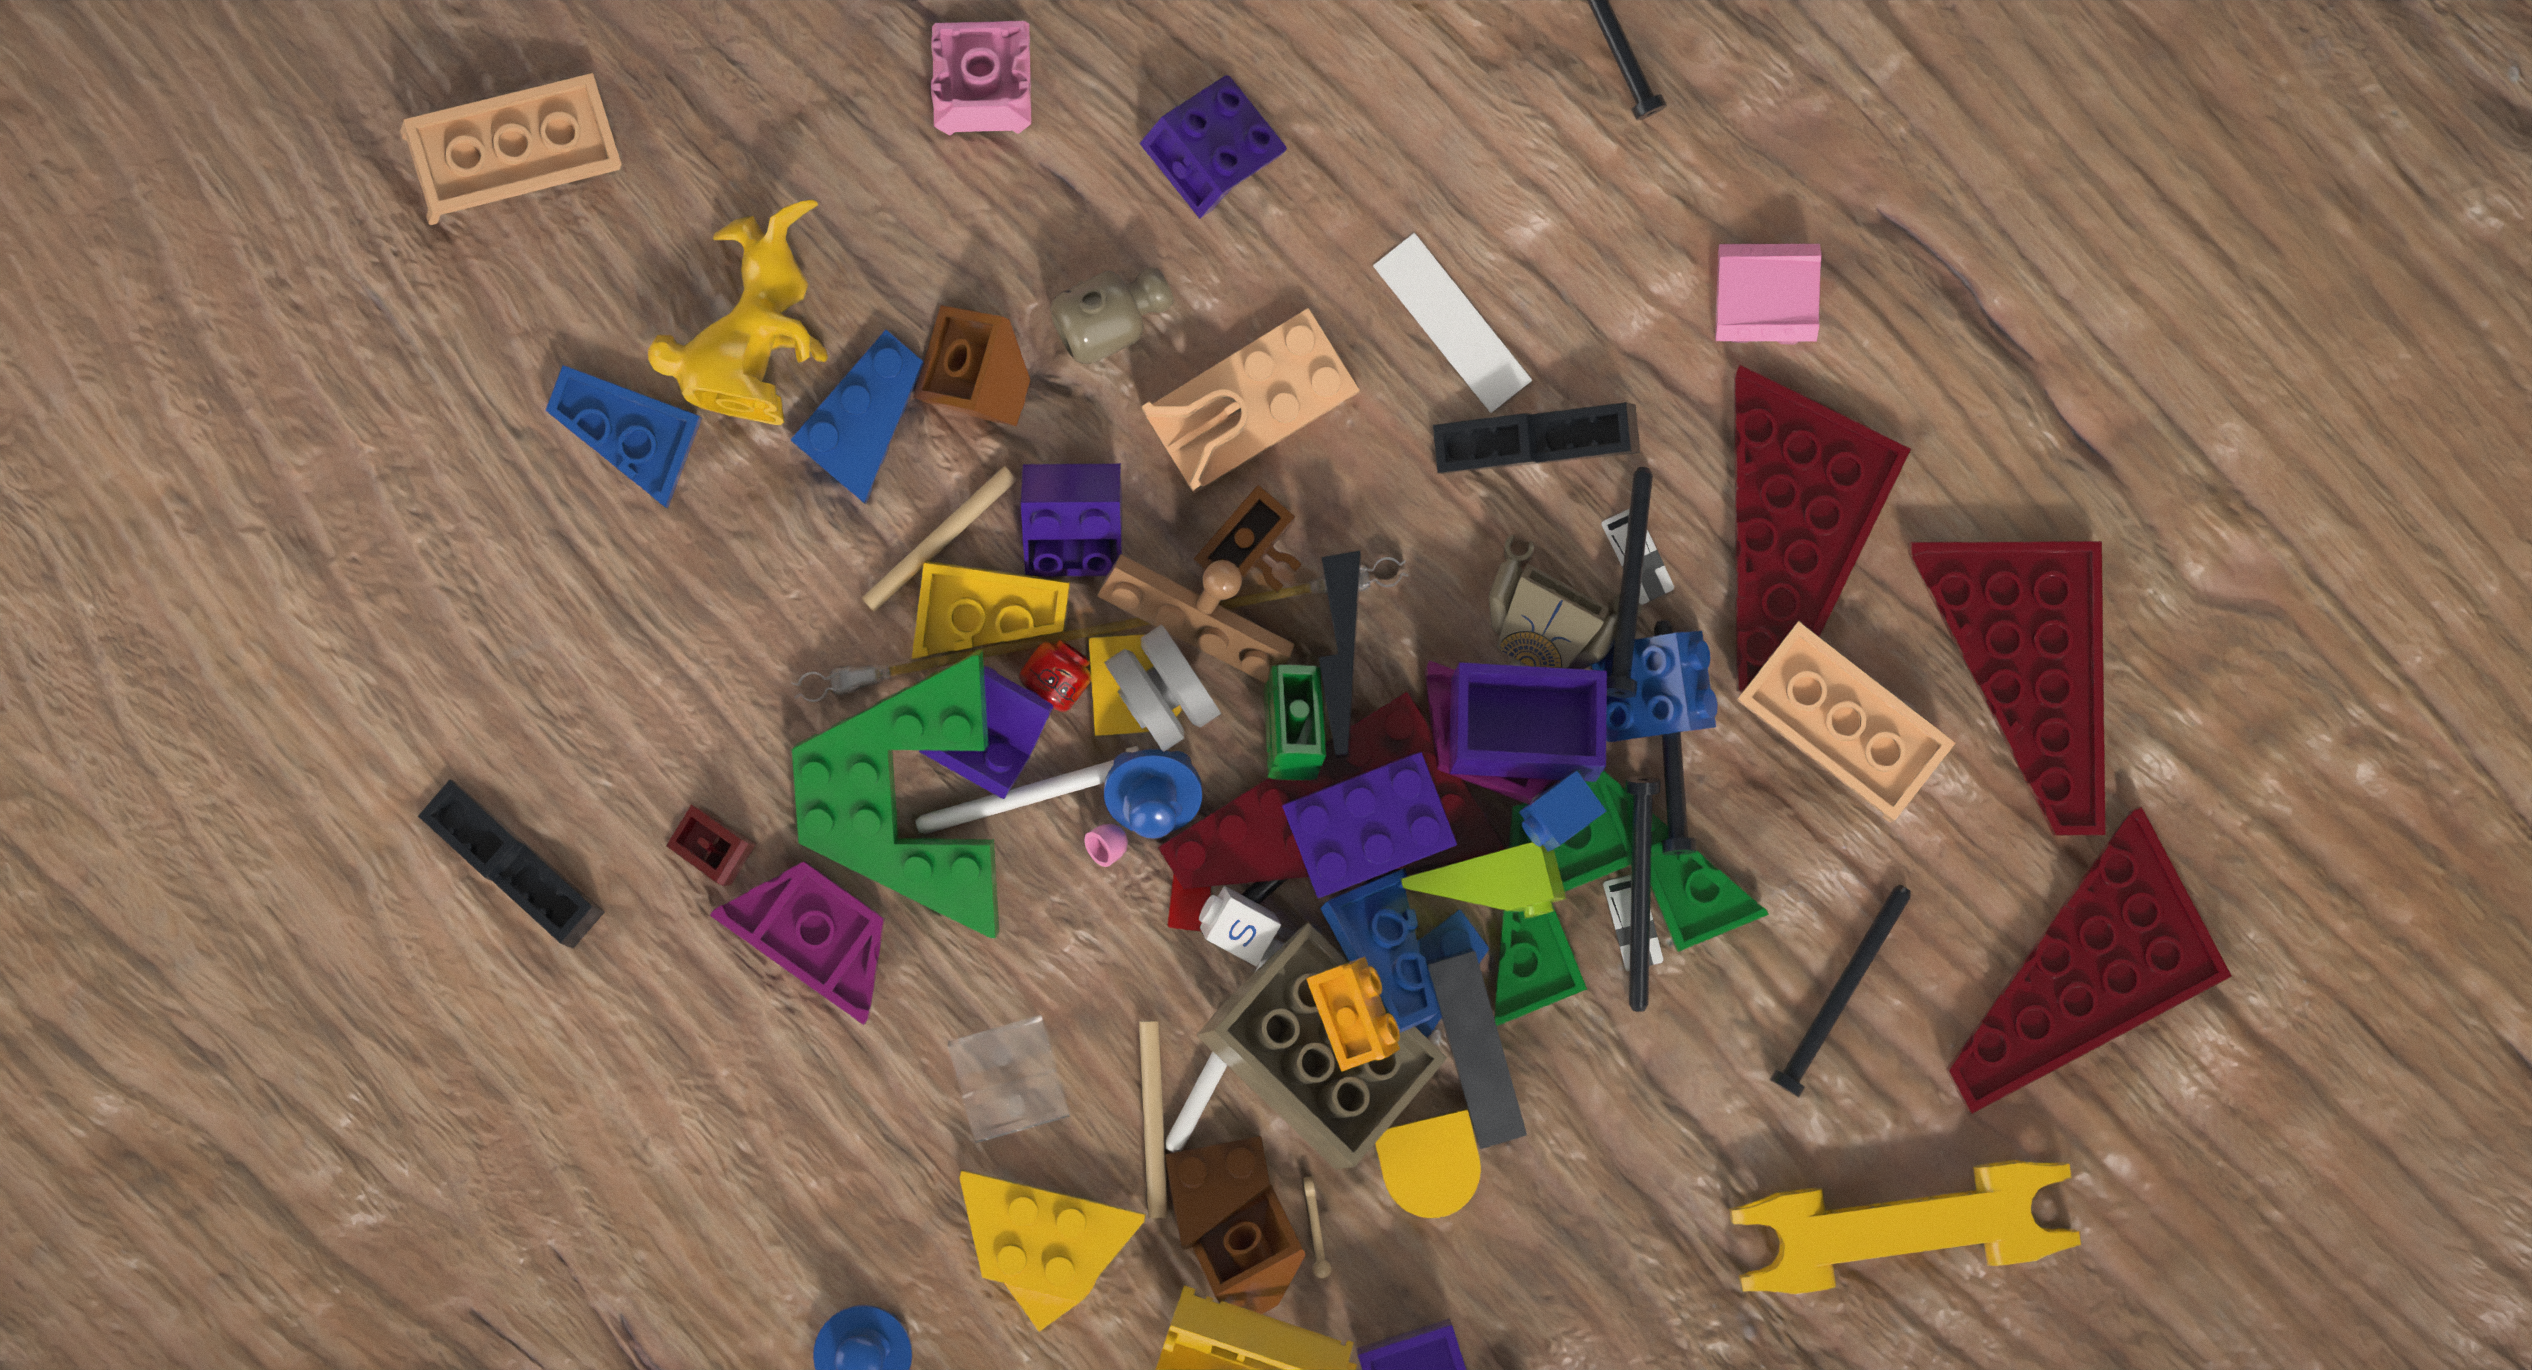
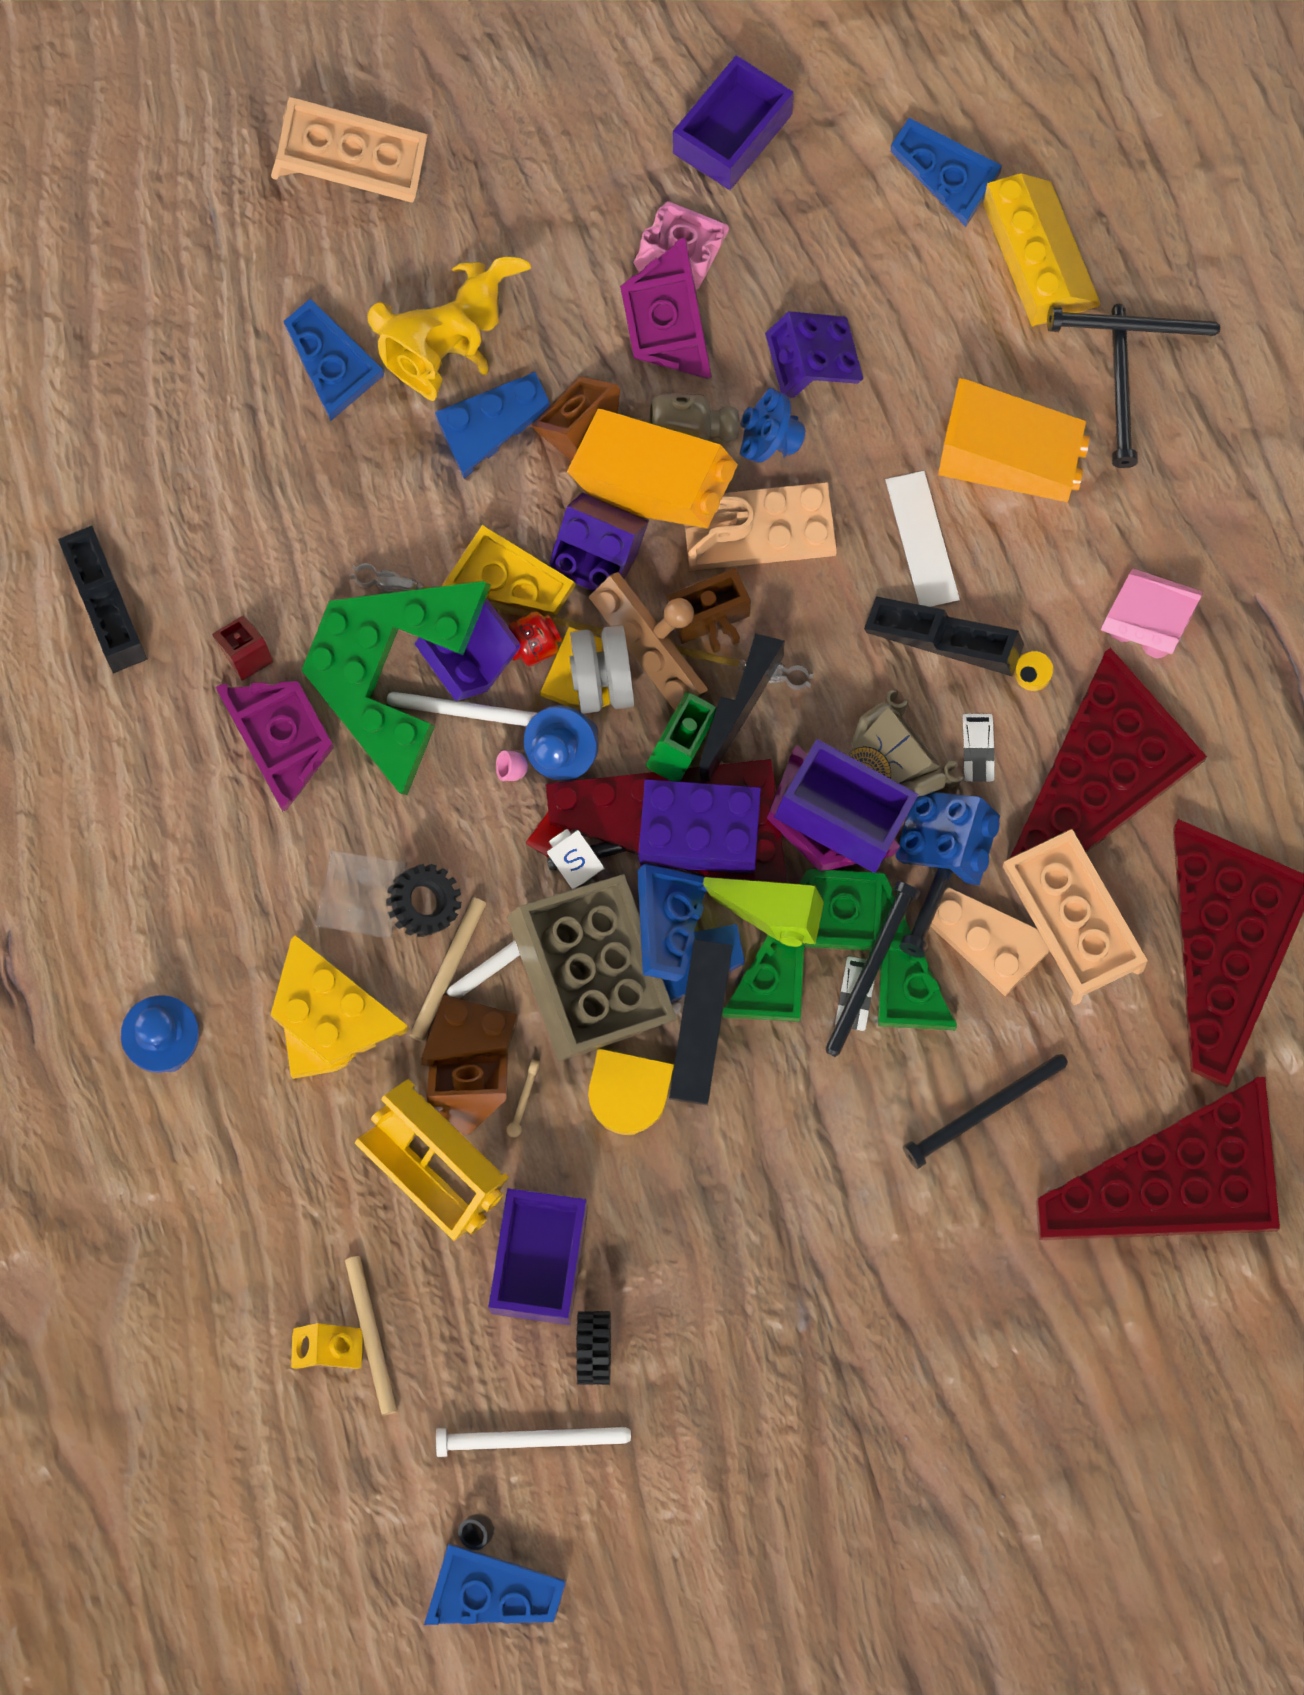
camera: 25 degrees right, 15 degrees down
(939, 538) = (501, 520): tan bar -> none
(1011, 182) = (666, 314): none -> magenta wing
(1101, 409) = (652, 470): none -> light orange slope
(1115, 1051) = (404, 910): none -> black tyre
(1209, 275) = (770, 428): none -> blue plate
(1354, 1013) = (625, 943): light orange bracket -> none
(1510, 157) = (1012, 443): none -> light orange slope
(1560, 812) = (840, 871): blue slope -> none
(1620, 681) = (924, 813): black bar -> none
(1661, 431) = (1033, 671): none -> yellow tile
(1757, 788) = (989, 940): none -> light nougat wing
(1818, 1238) = (1021, 1318): yellow piece -> none

